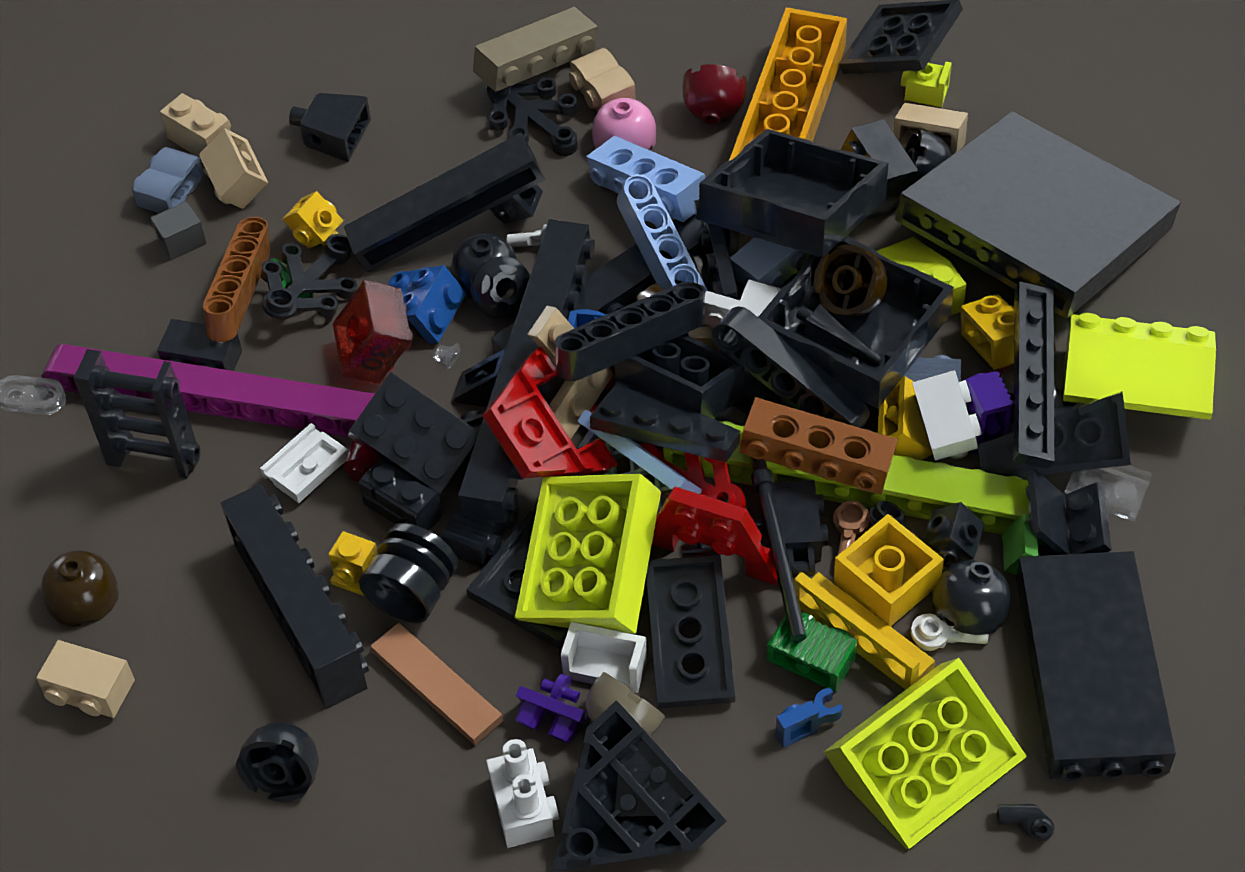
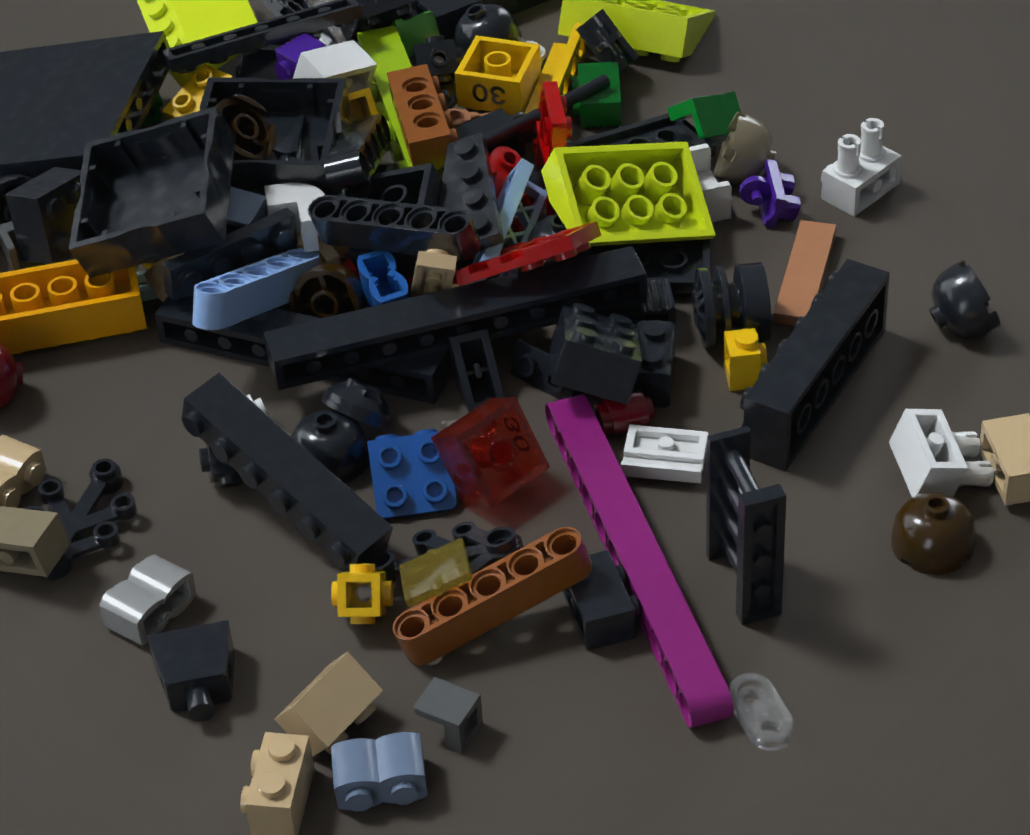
camera: 120 degrees left, 10 degrees down
(140, 616) = (933, 454): none -> white brick
(284, 254) = (435, 572): none -> clear yellow piece
(416, 120) = (147, 599): none -> light grey brick
(626, 120) = (68, 432): bright pink cylinder -> none
(630, 799) = (810, 114): black wedge -> none
(673, 181) = (120, 407): light blue brick -> none
(701, 714) = (710, 113): none -> green panel
(803, 720) = (666, 76): blue plate -> none
(867, 674) = (606, 40): none -> black hips

